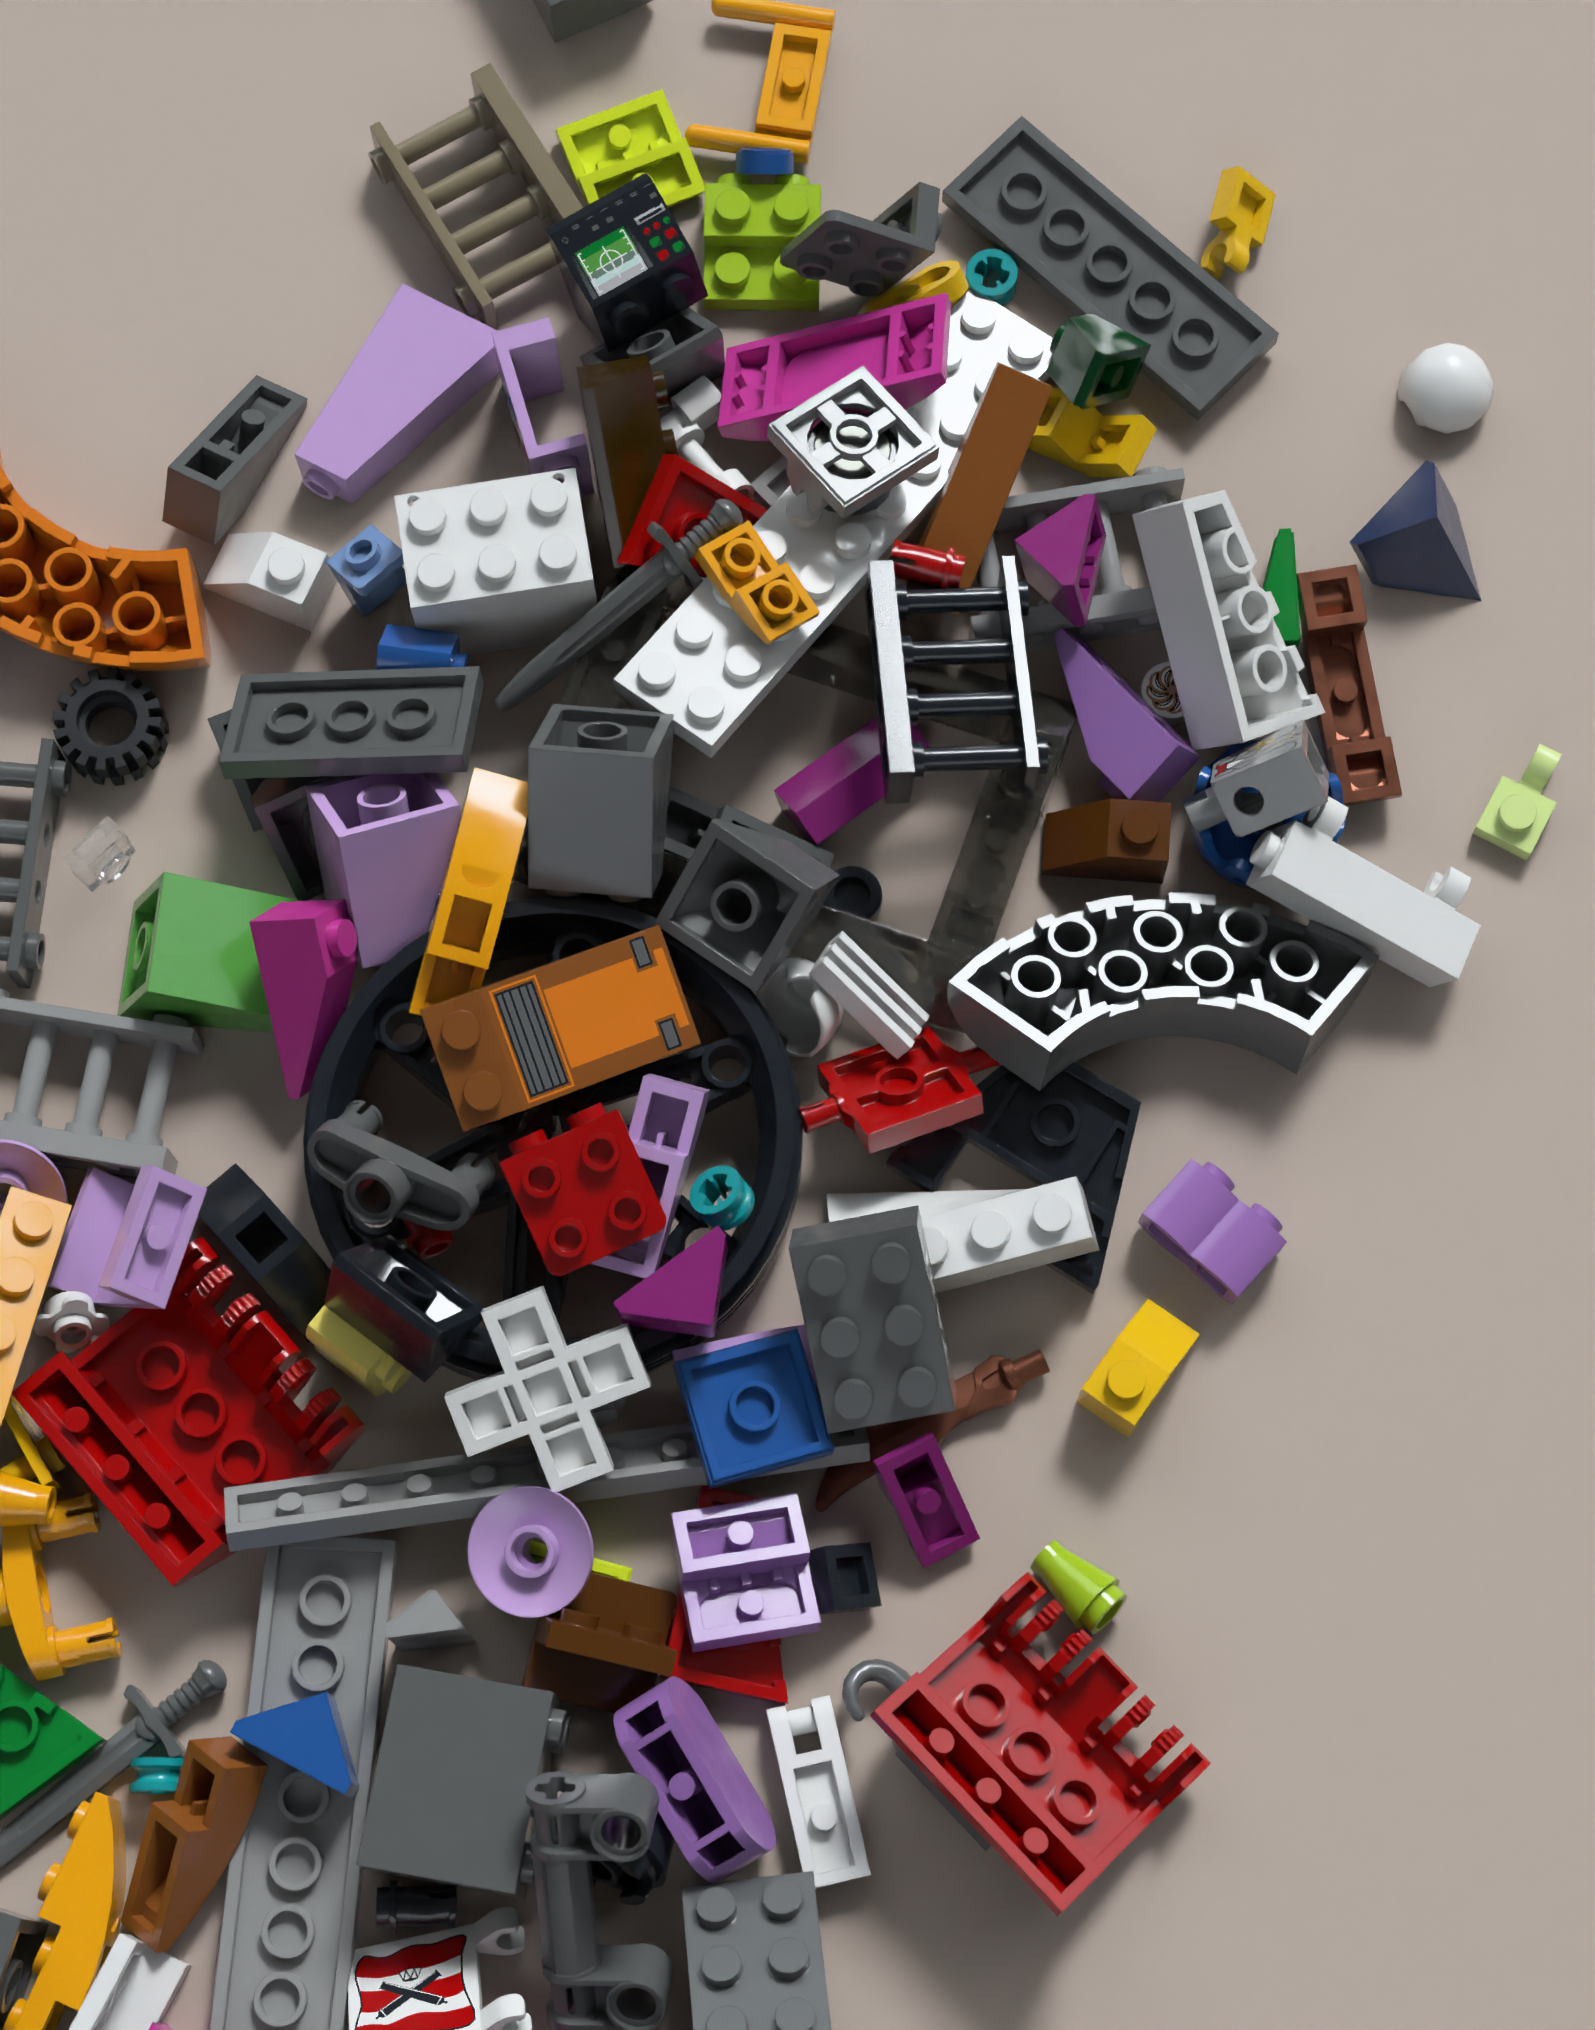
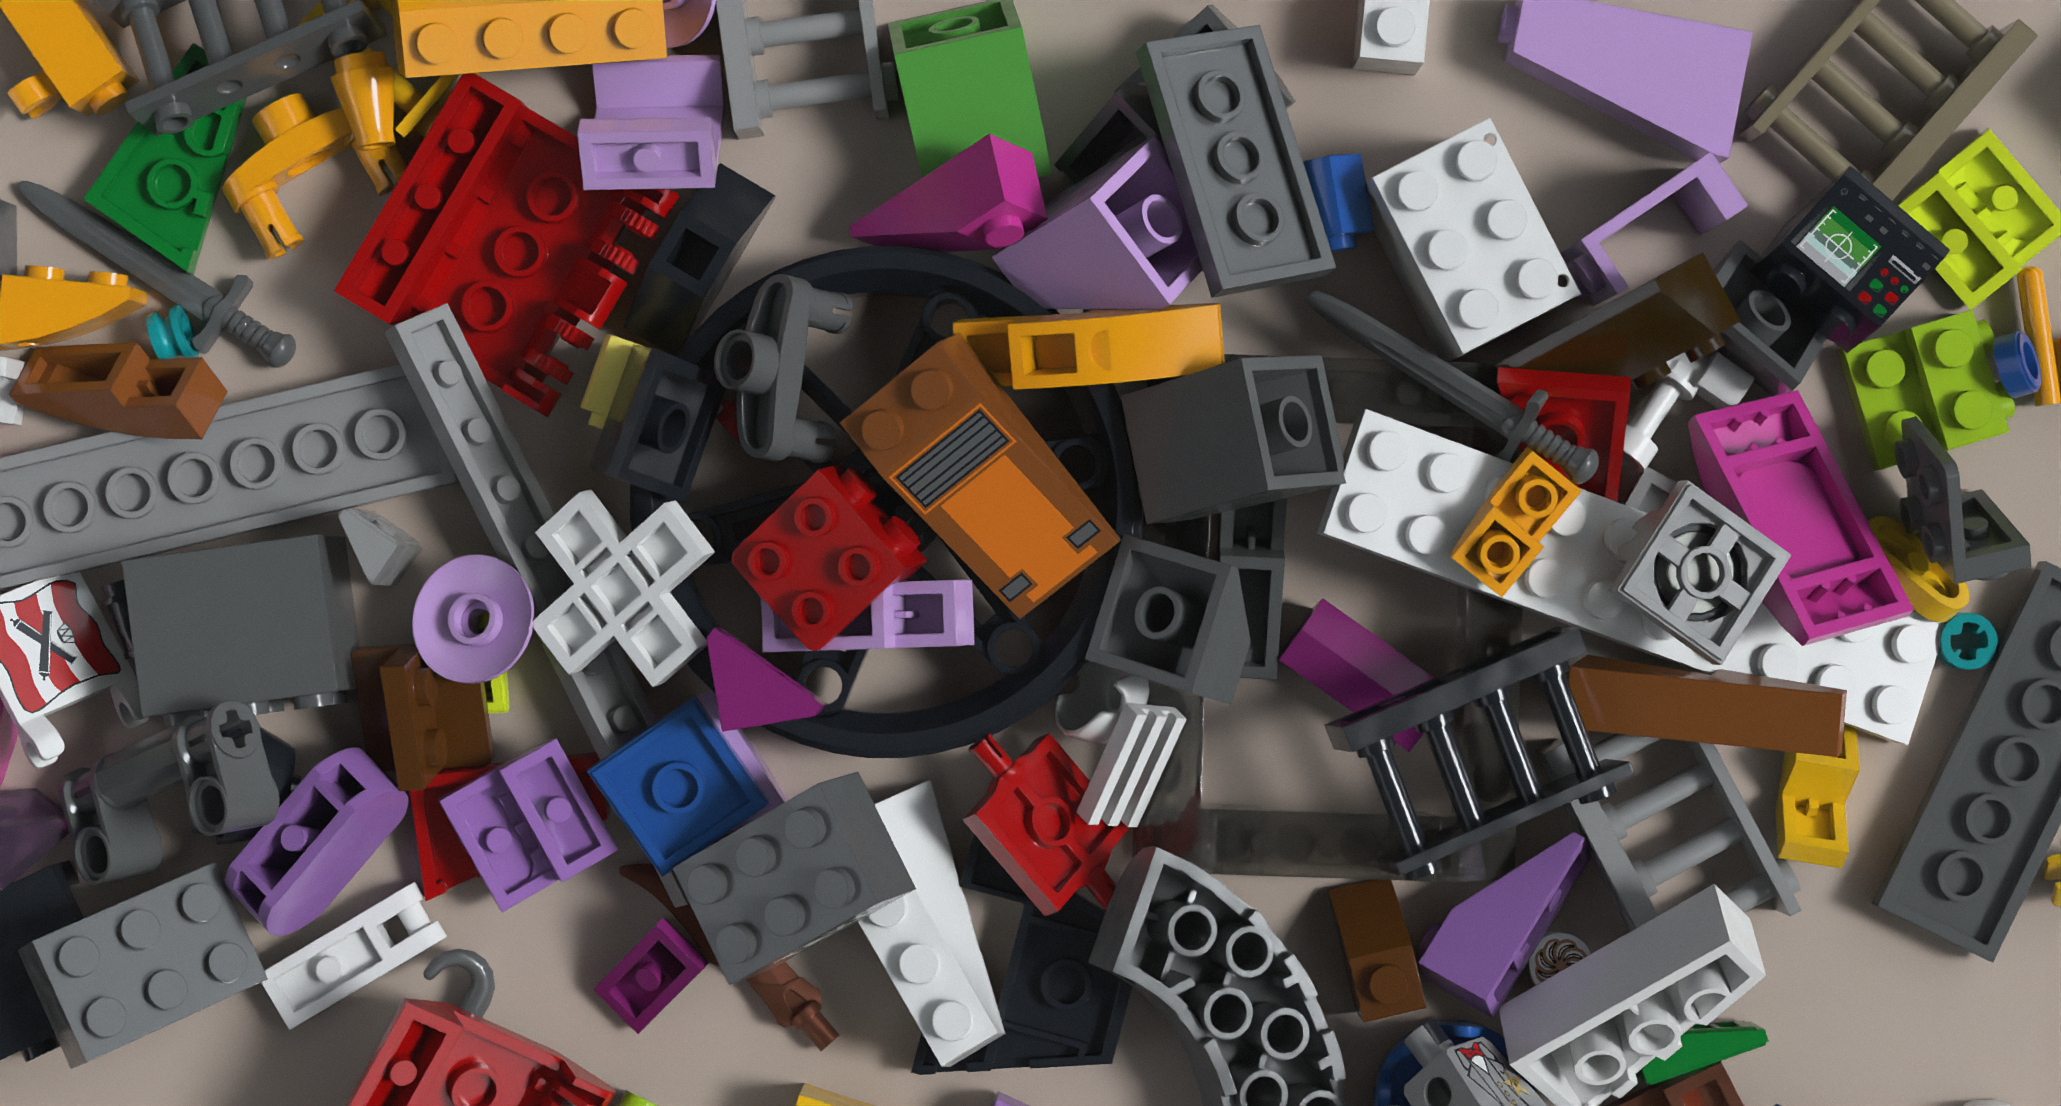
camera: 75 degrees right, 15 degrees up
(70, 1321) = (569, 93): white plate -> none
(306, 1737) = (234, 465): blue slope -> none
(368, 569) = (1427, 107): medium blue bracket -> none
(713, 1184) = (871, 674): teal bush -> none
(844, 1578) = (557, 918): black plate -> none
(856, 893) = (1247, 714): black tile -> none
(932, 565) = (1600, 685): red pin -> none
(1065, 557) = (1656, 821): magenta slope -> none
(1095, 361) = (1894, 782): dark green slope -> none

